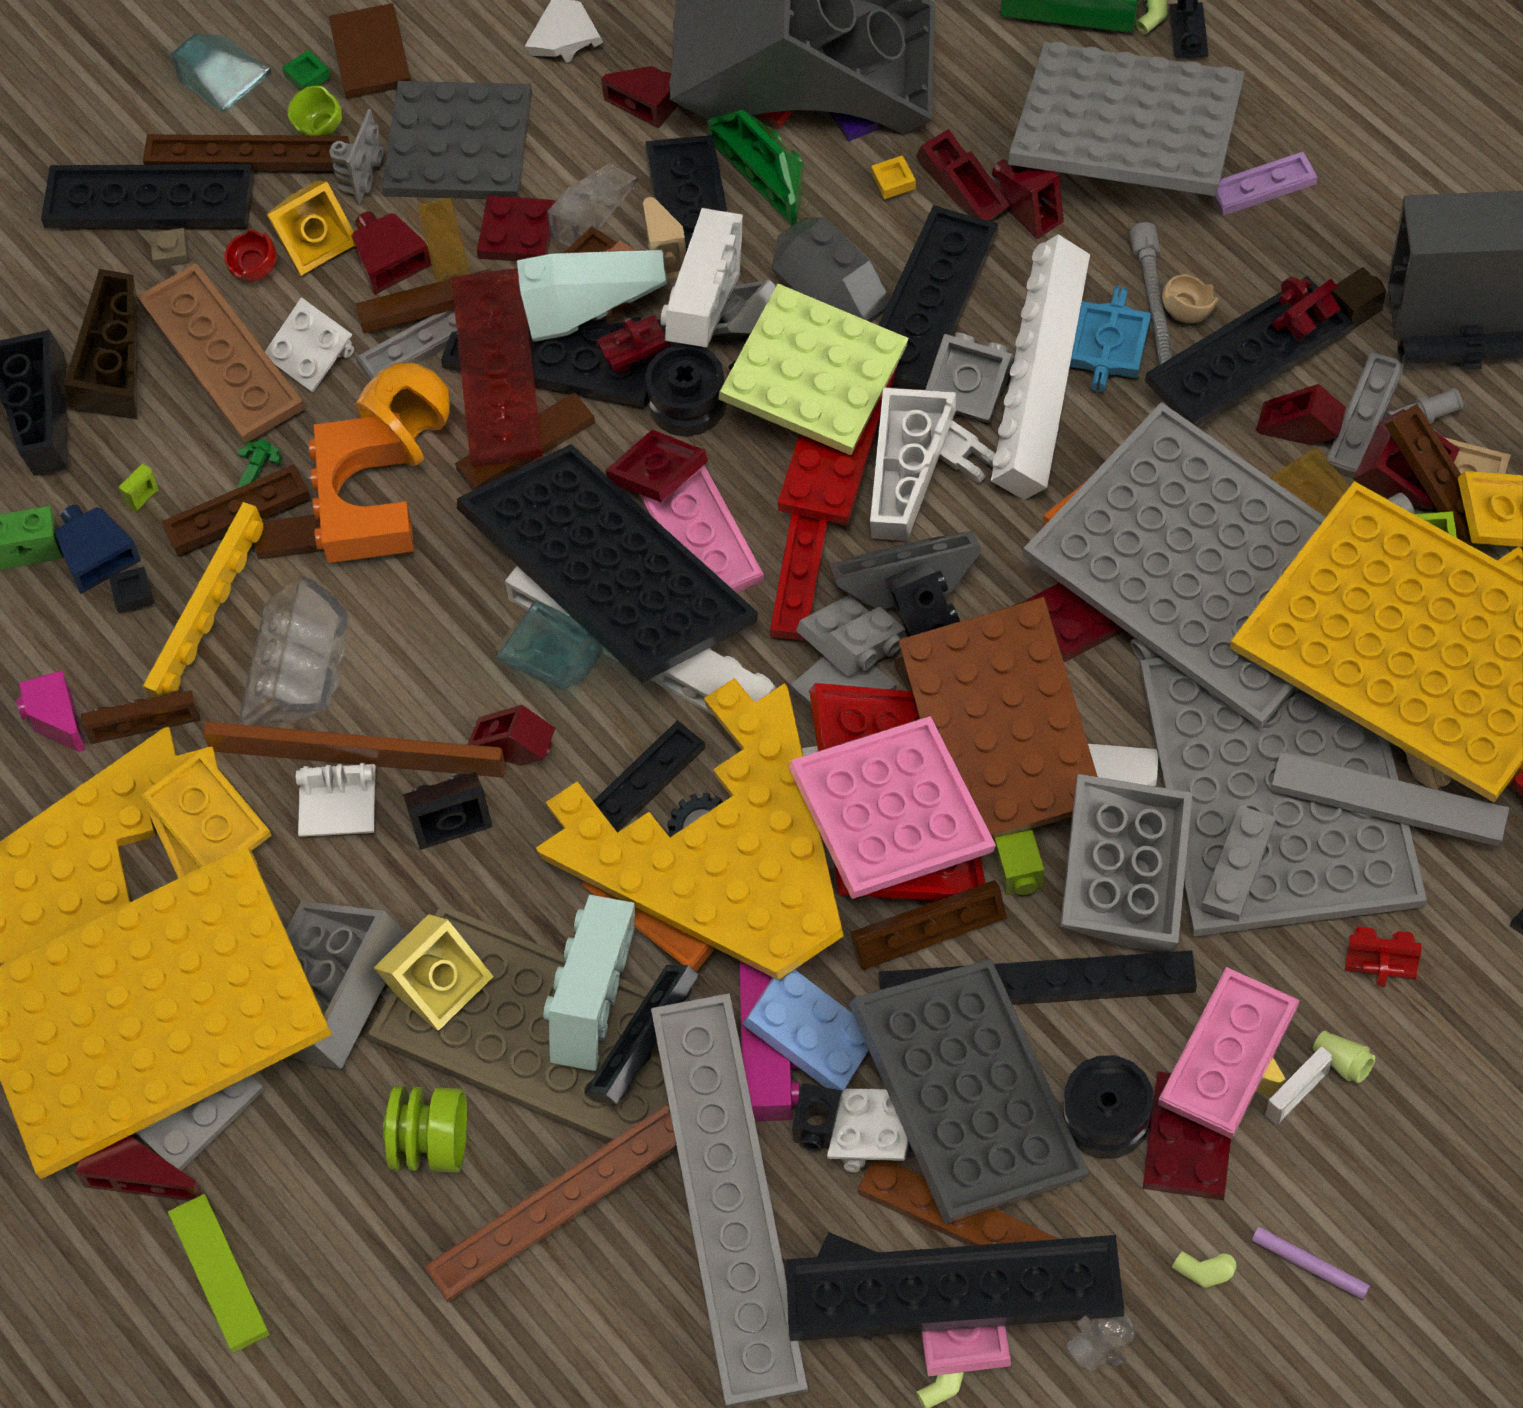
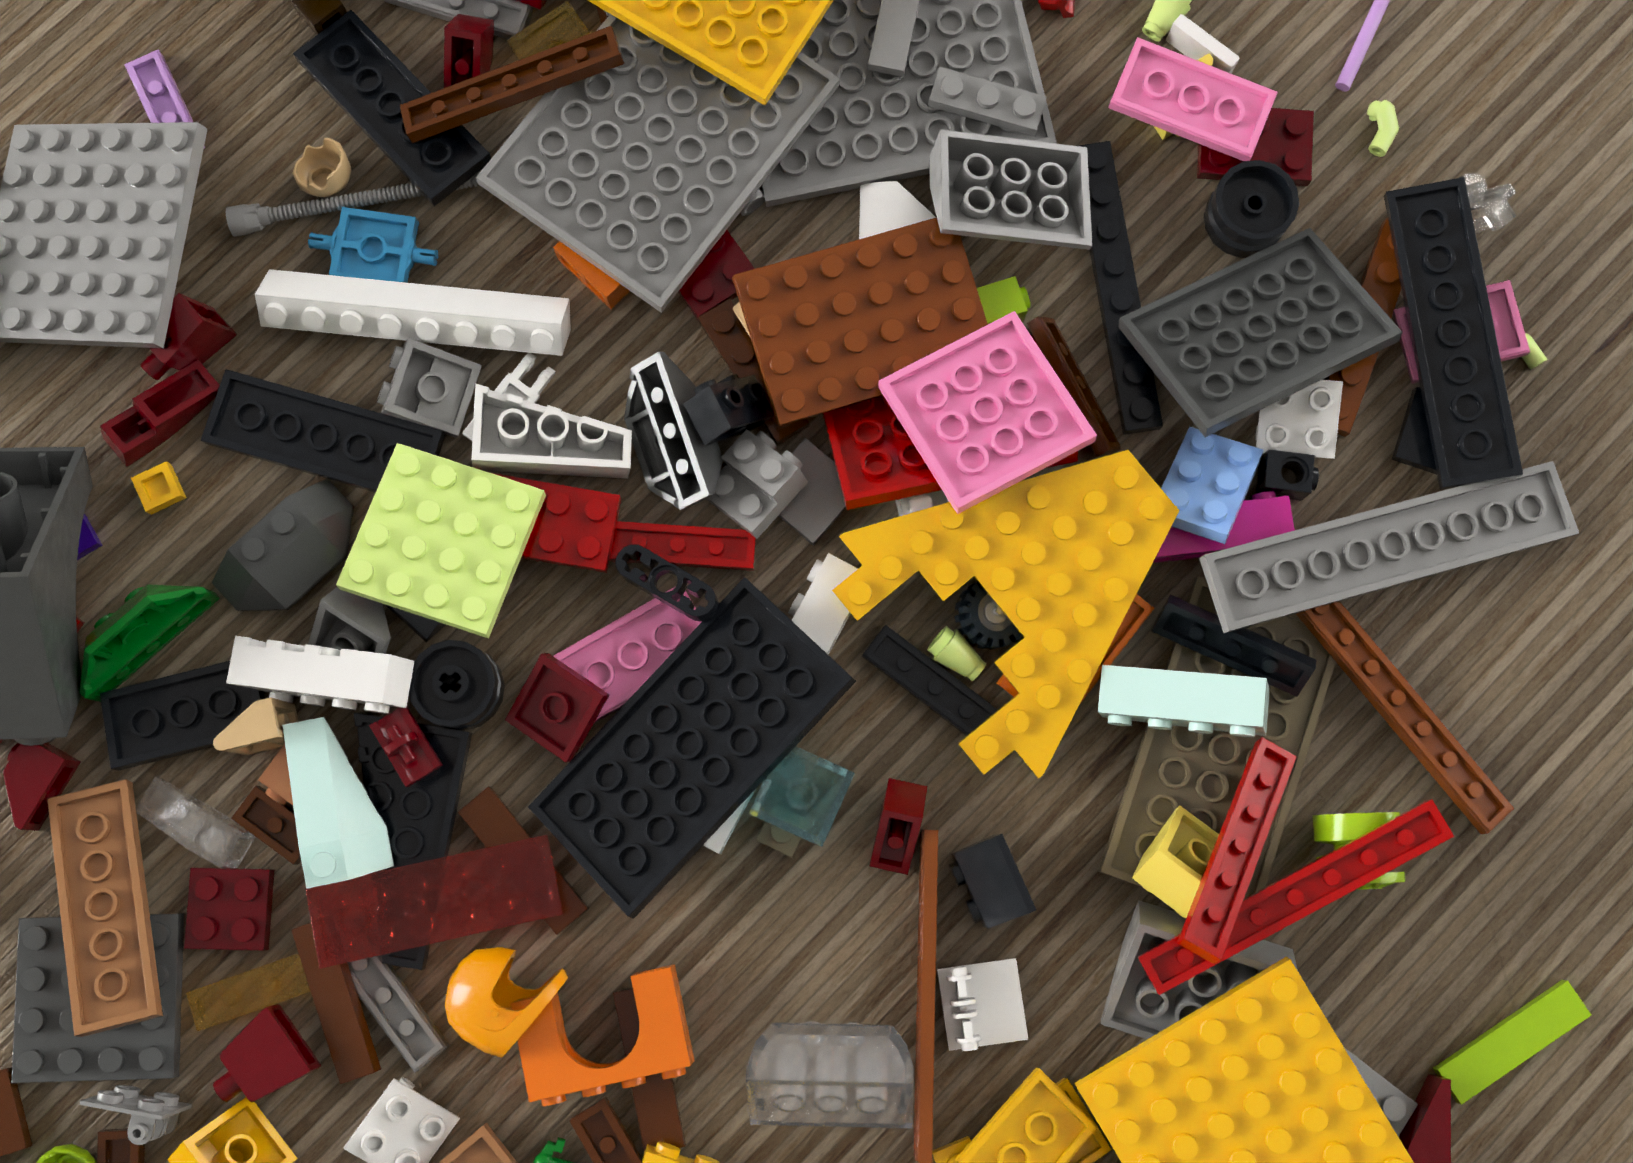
camera: 100 degrees left, 20 degrees up
(386, 1036) = (1308, 890): none -> red plate
(440, 992) = (1237, 851): none -> red plate
(529, 135) = (104, 908): none -> medium nougat plate
(667, 796) = (956, 653): none -> yellowish green cone
(756, 564) = (649, 560): none -> black beam
(1255, 434) = (511, 84): none -> reddish brown plate
(1319, 301) = (336, 48): dark red hips -> none

